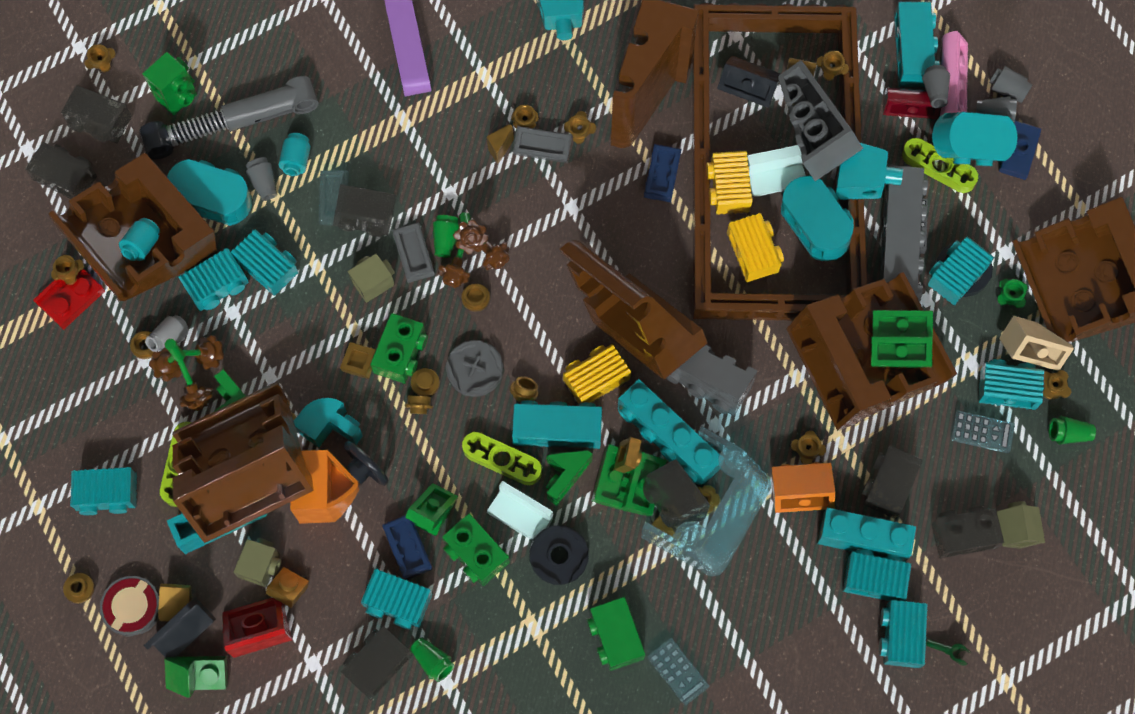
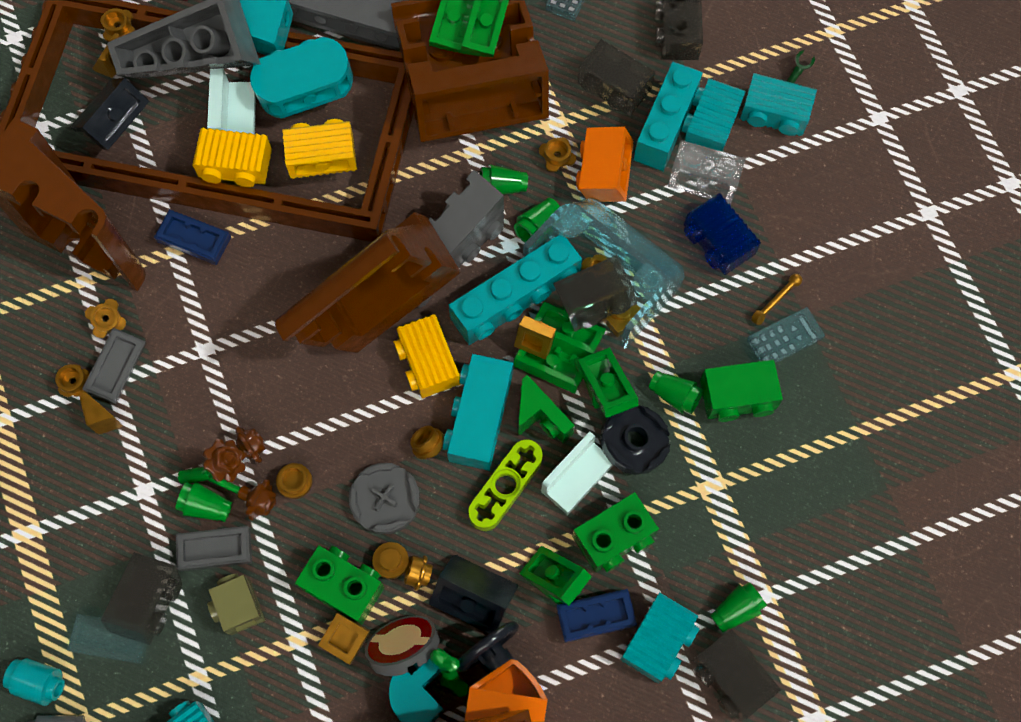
camera: 80 degrees left, 0 degrees up
(343, 436) = (448, 667): none -> green piece
(358, 401) = (401, 645): none -> tile
(410, 449) = (473, 594): none -> black panel
(599, 521) = (607, 383): none -> green slope
(607, 583) = (676, 391): none -> green cone
(692, 645) = (759, 316): none -> pearl gold hinge
(741, 438) = (534, 218): none -> green cone
(760, 599) = (721, 234): none -> clear blue brick
(769, 404) = (505, 179): none -> green cone
(817, 577) = (706, 171): none -> clear brick

